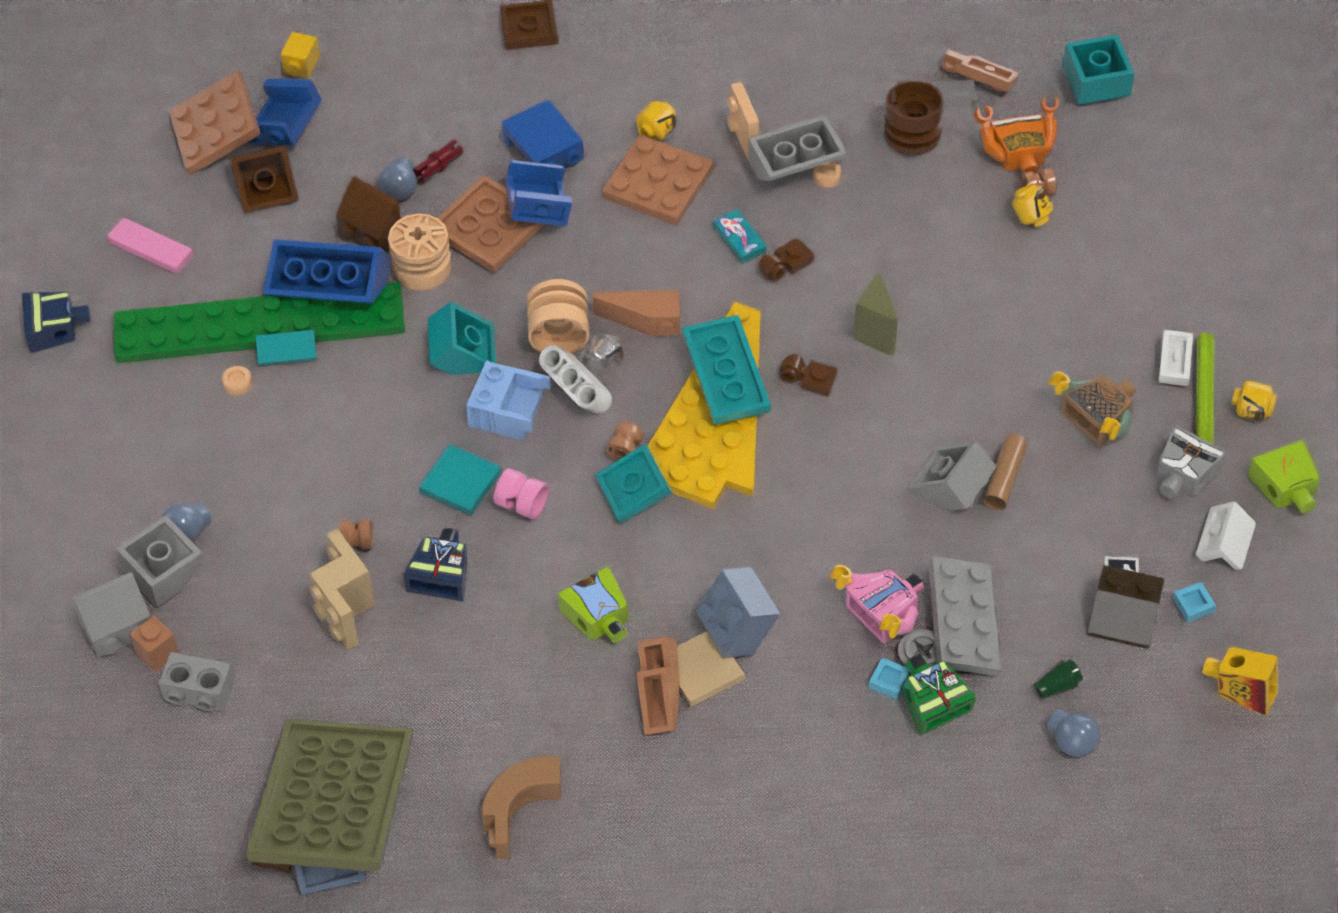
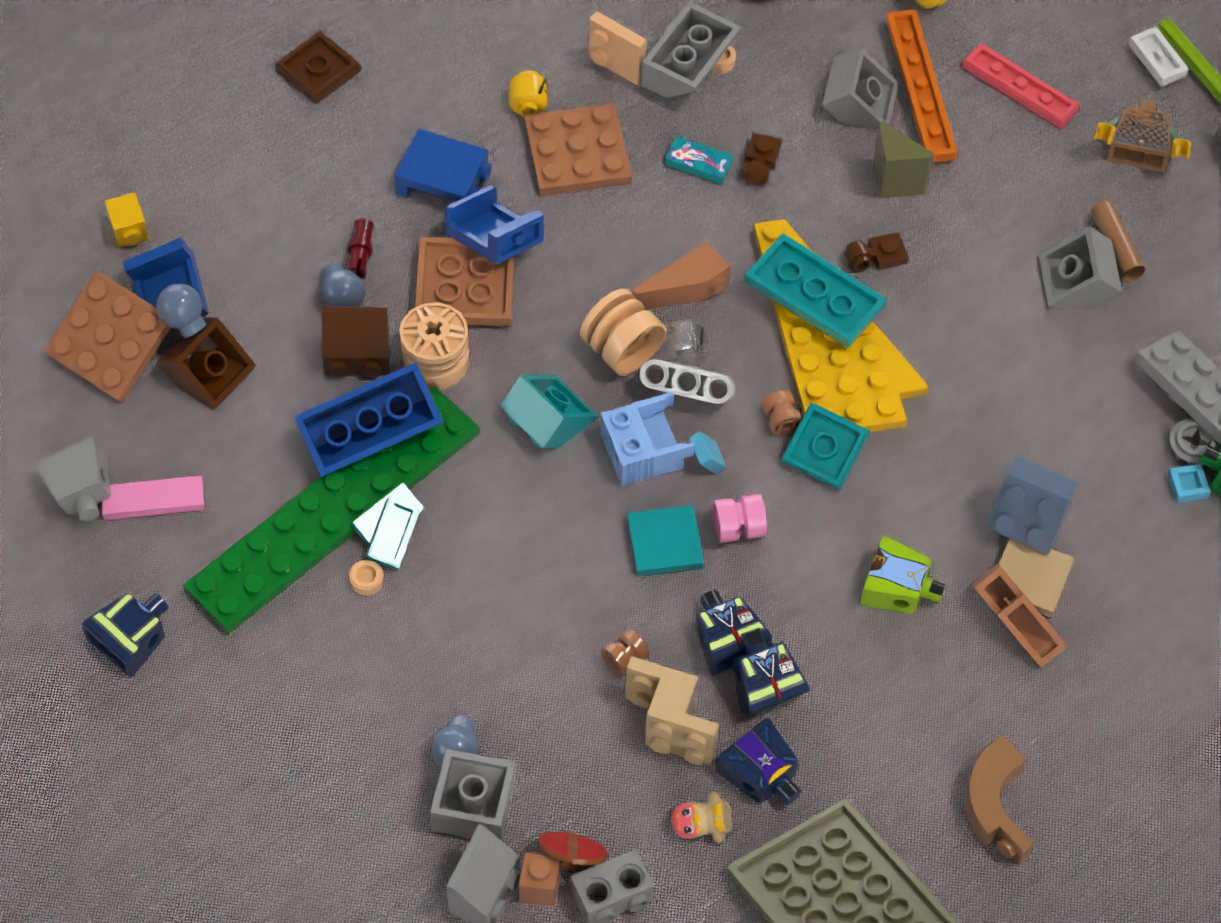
camera: 40 degrees left, 5 degrees up
(109, 201) = (78, 478): none -> light grey torso
(192, 636) = (571, 849): none -> piece
(263, 124) = (181, 309): none -> sand blue piece
(278, 359) = (393, 532): none -> tile
(297, 675) = (699, 819): none -> animal
(377, 667) = (761, 764): none -> dark blue torso
(433, 607) = (765, 674): none -> torso
(544, 437) = (708, 452): none -> medium azure tile
(881, 600) = (1131, 419): bright pink torso -> none
(907, 253) = (860, 90): none -> light grey slope
(959, 275) = (921, 85): none -> orange plate
(1043, 319) = (1021, 85): none -> coral tile

